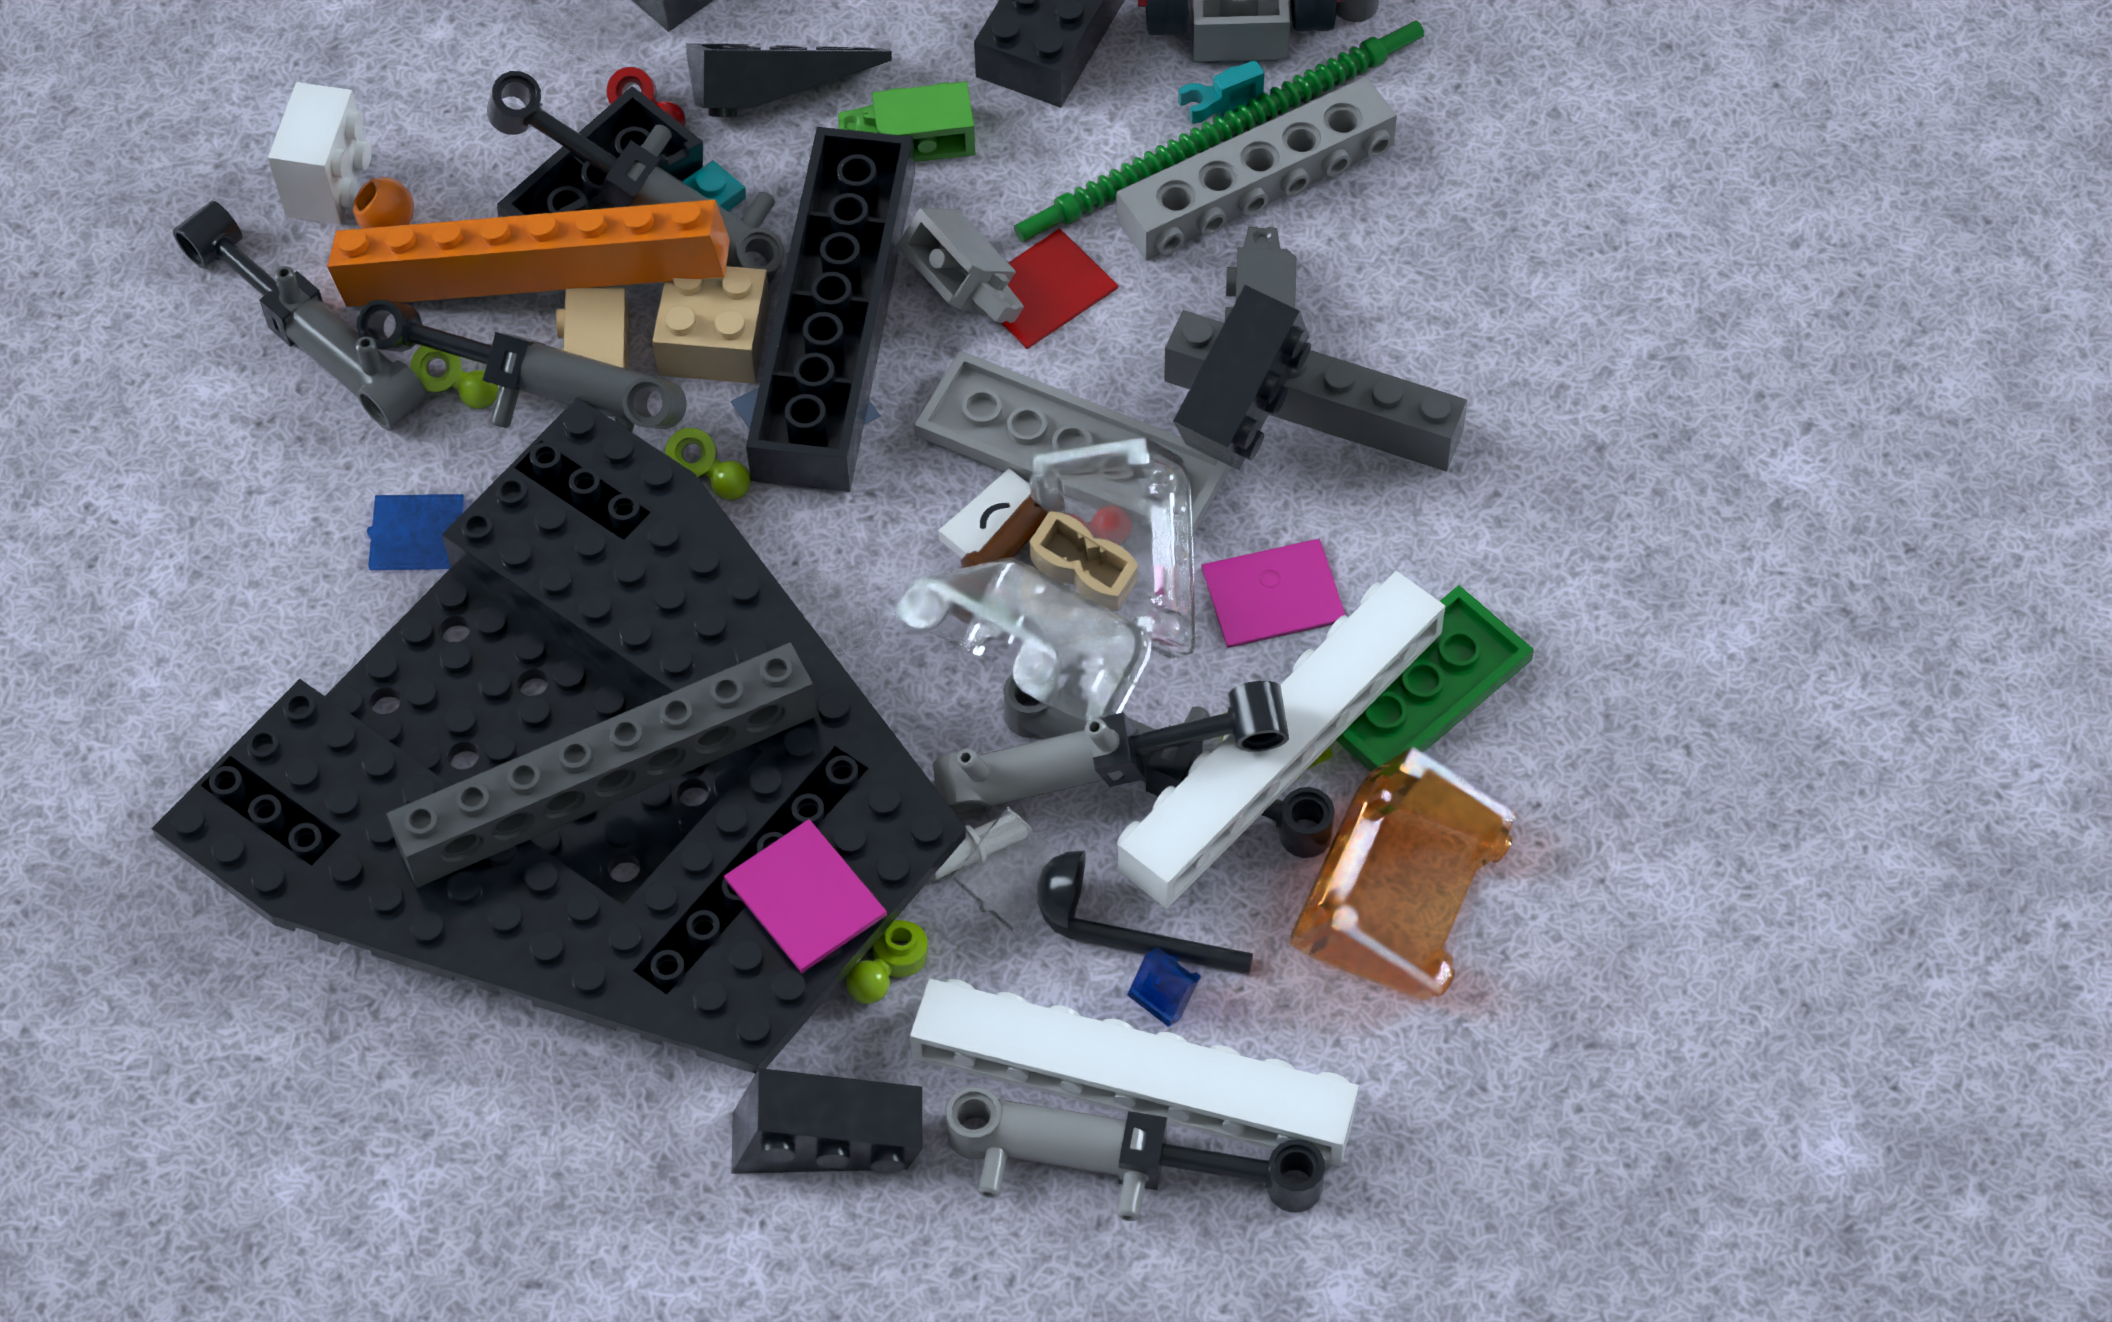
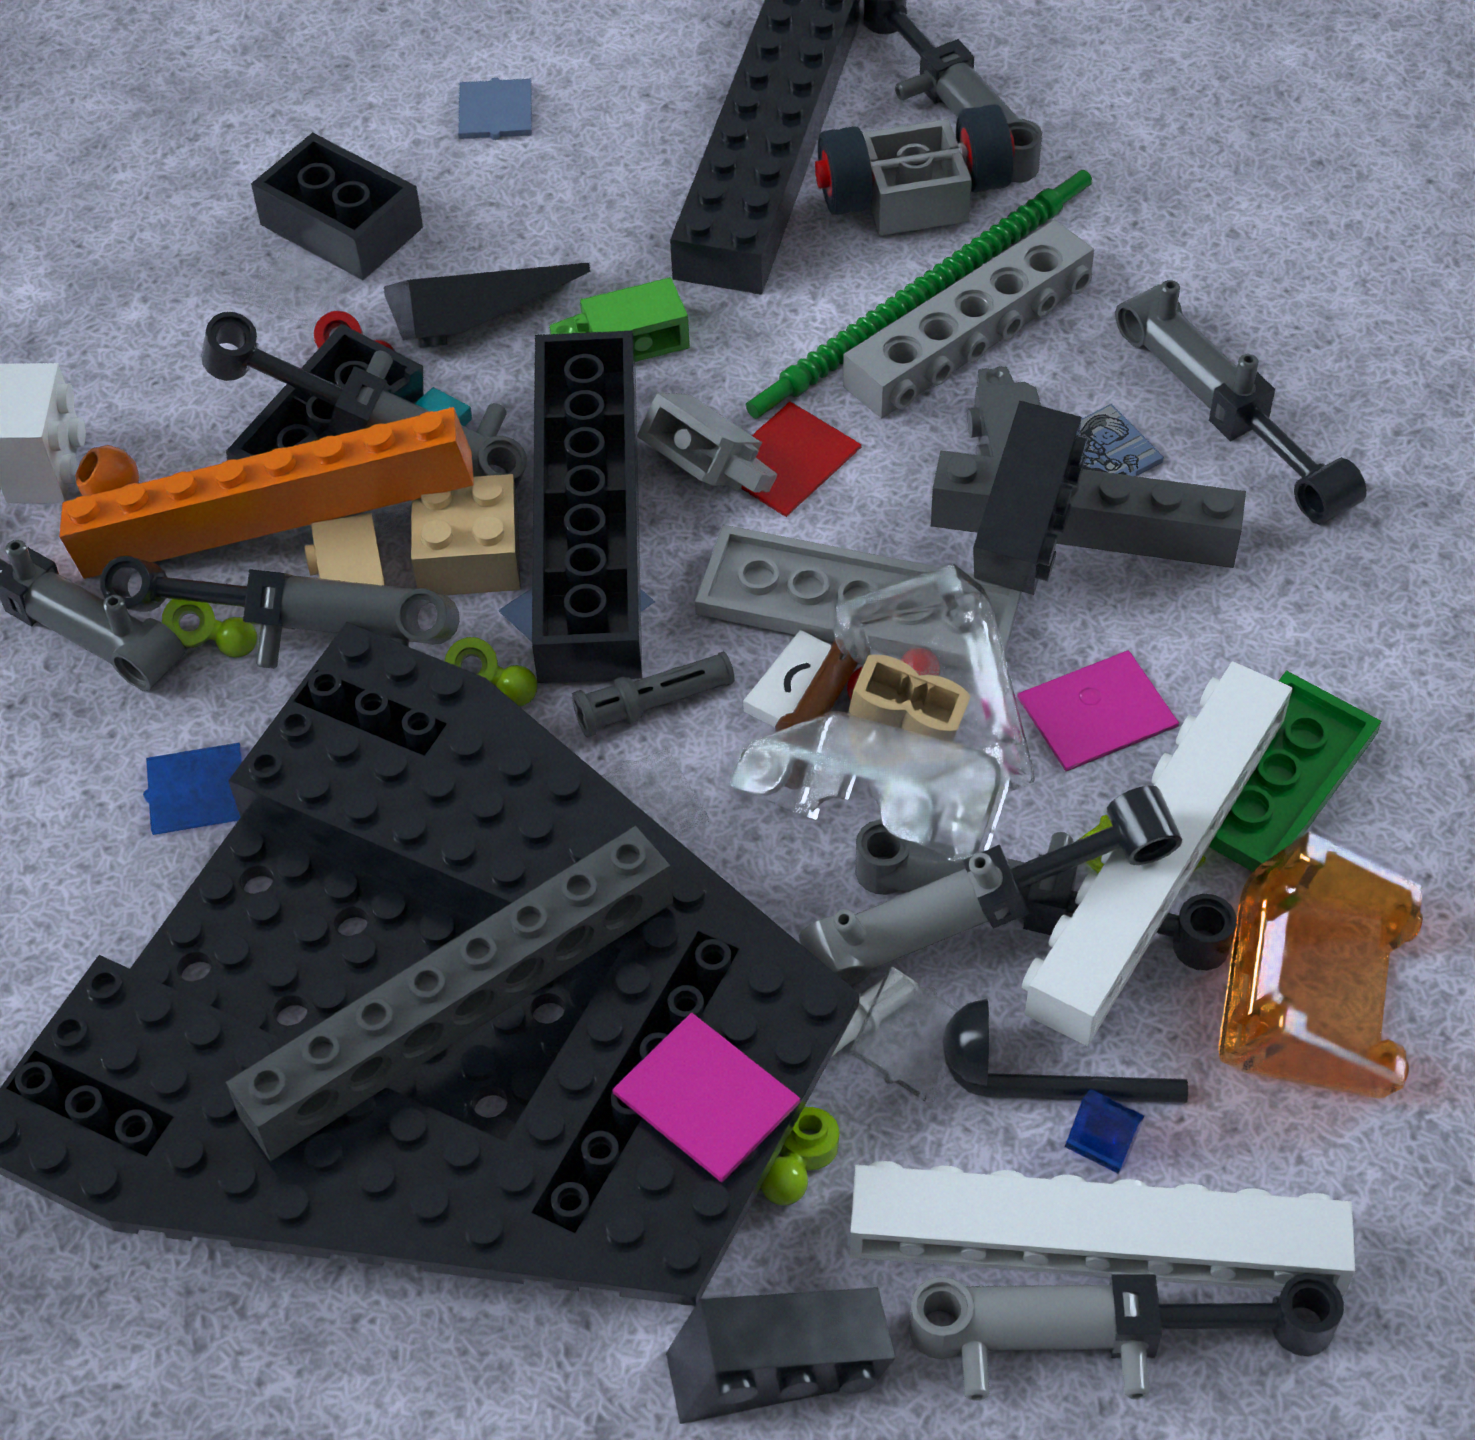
camera: 10 degrees left, 5 degrees down
(831, 511) = (630, 698): none -> dark grey pin
(1229, 89) = (923, 253): teal plate -> none
(1356, 326) = (1116, 444): none -> piece
(1495, 294) = (1235, 395): none -> piece

